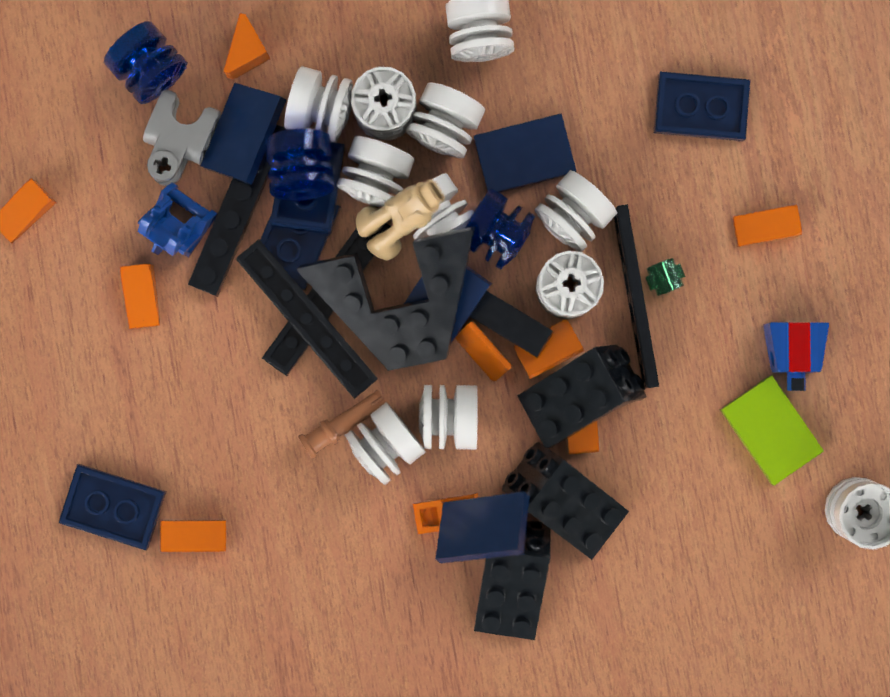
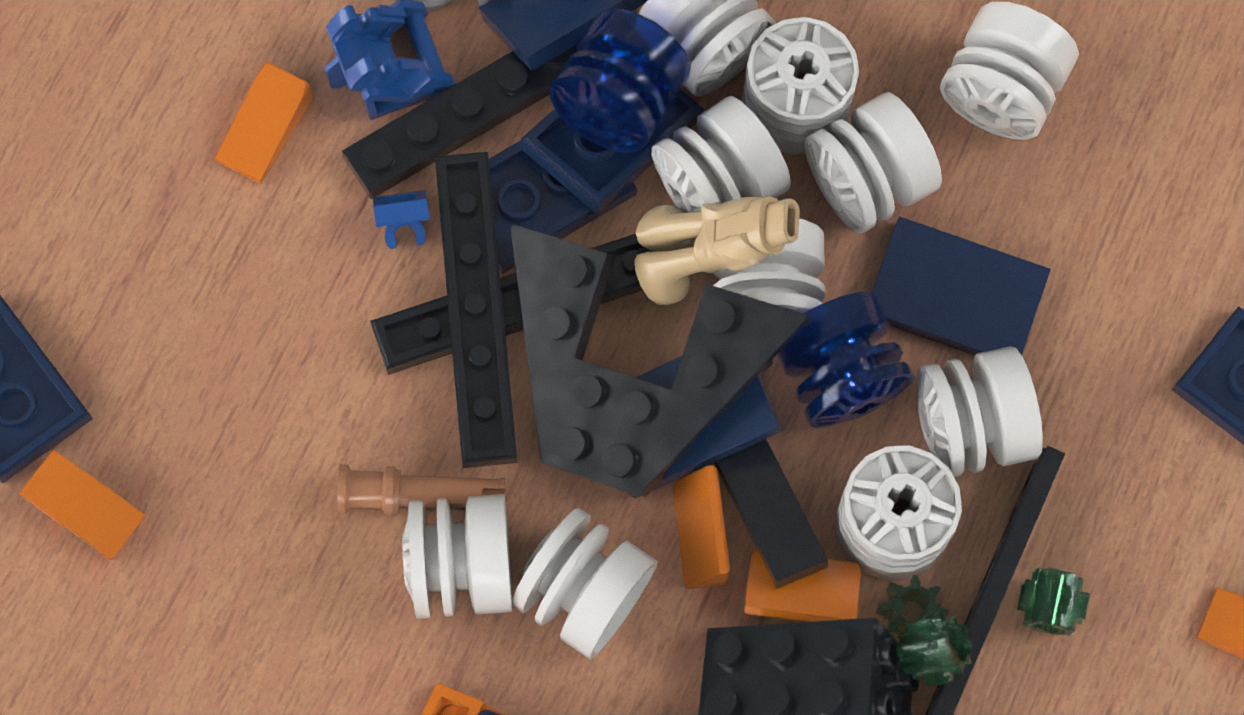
camera: 30 degrees right, 15 degrees down
(237, 295) = (402, 210): none -> blue tile
(596, 329) = (913, 593): none -> clear green gear
(629, 340) = (934, 648): none -> clear green gear

